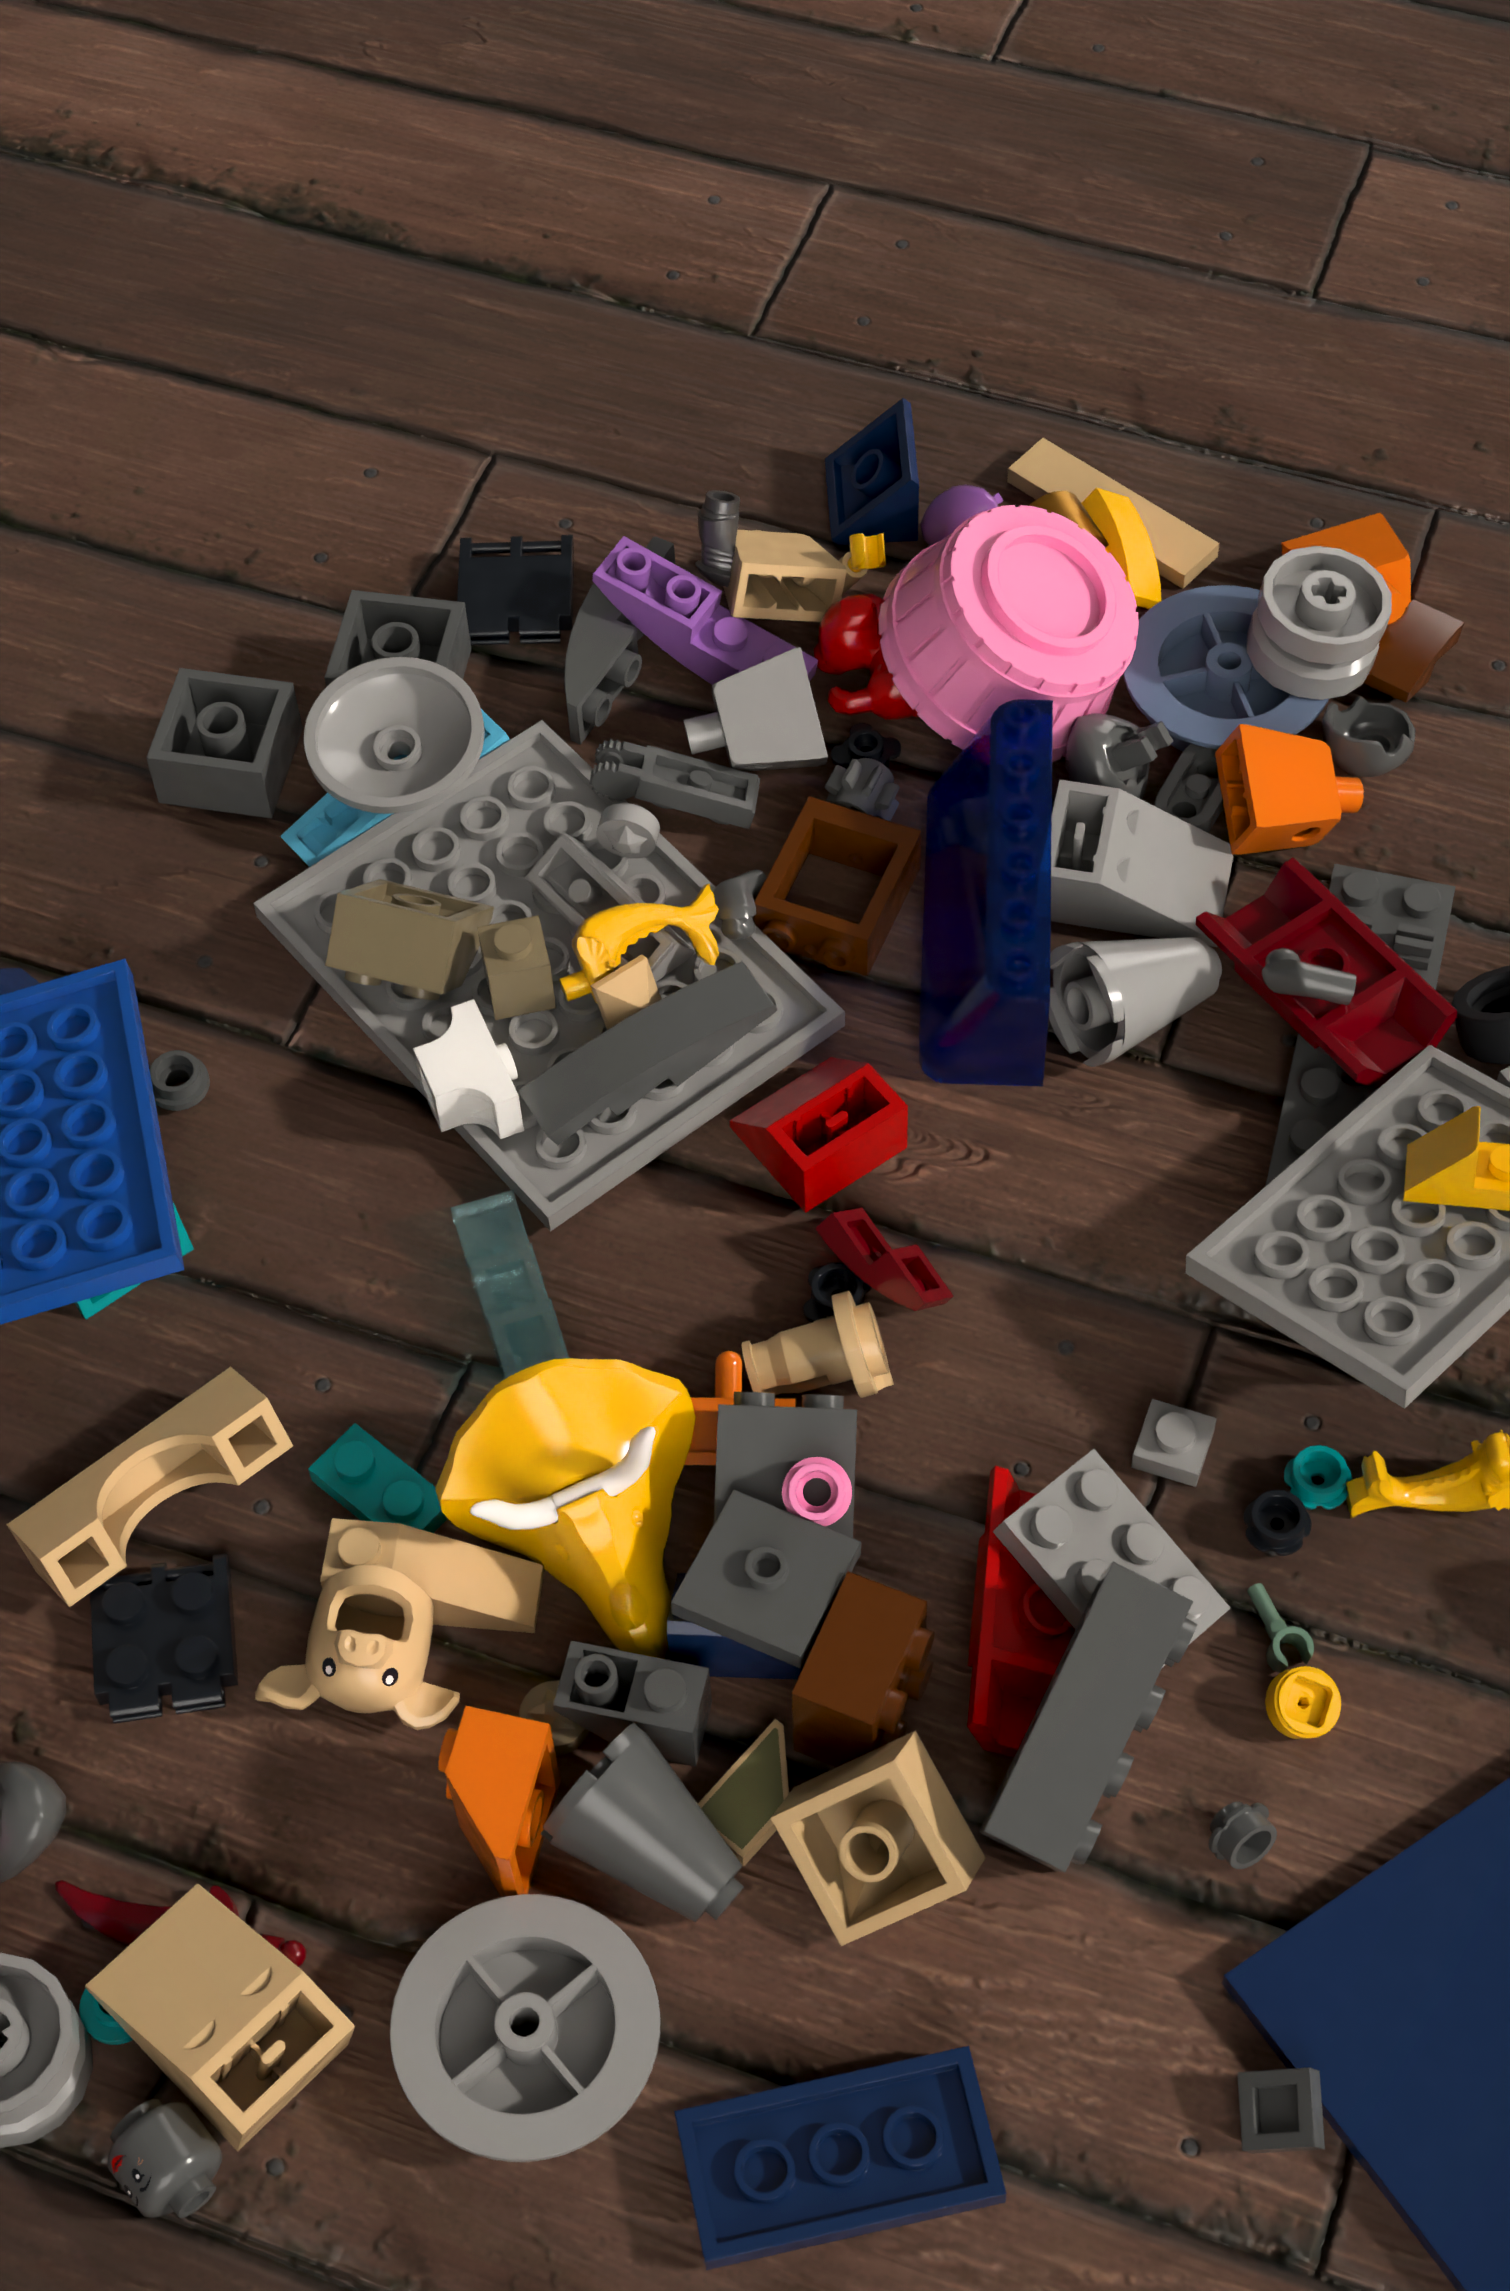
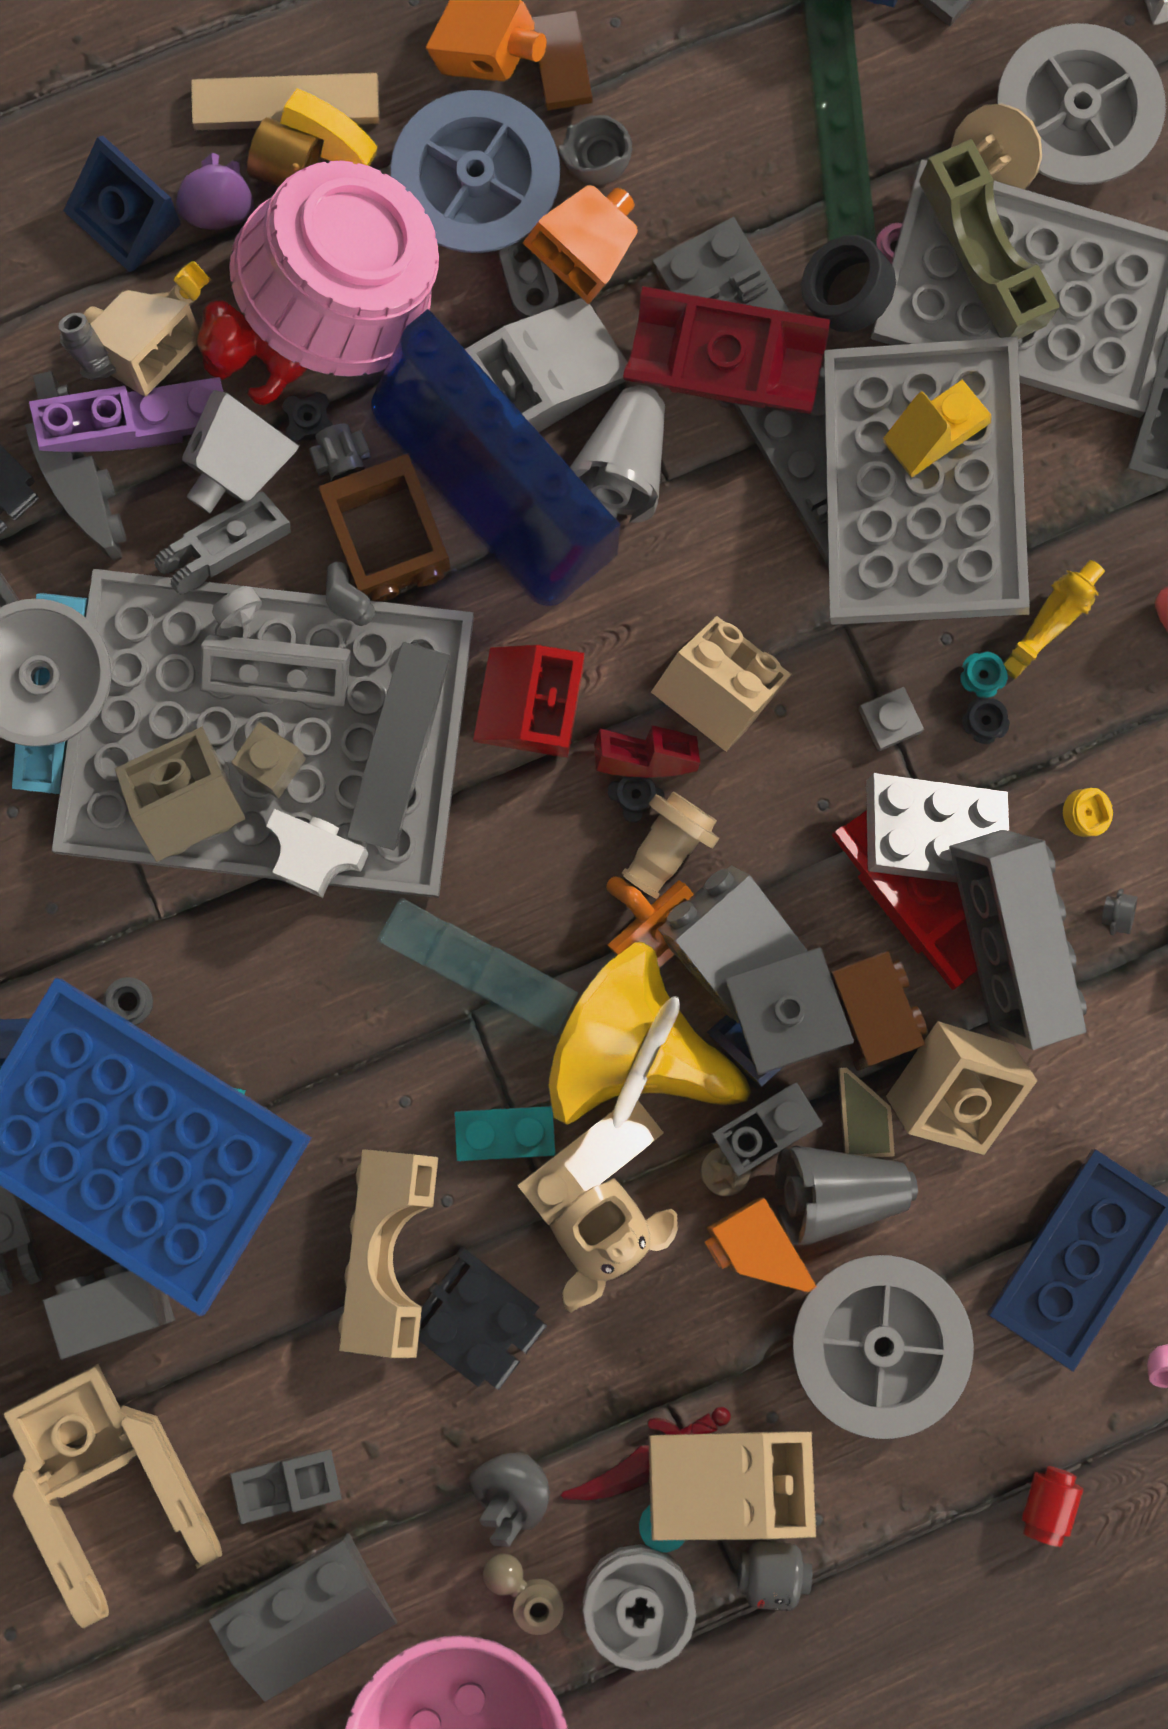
camera: 50 degrees left, 25 degrees up
(608, 933) = (302, 693): yellow animal -> none
(626, 991) = (352, 720): tan slope -> none
(817, 1468) = (781, 942): bright pink plate -> none
(1025, 1260) = (720, 682): none -> tan slope
(1113, 752) = (466, 297): dark grey piece -> none
(1278, 1631) = (1039, 781): sand green hand -> none
(1290, 976) = (734, 375): dark grey arm -> none
(1318, 622) = (516, 101): light grey wheel -> none

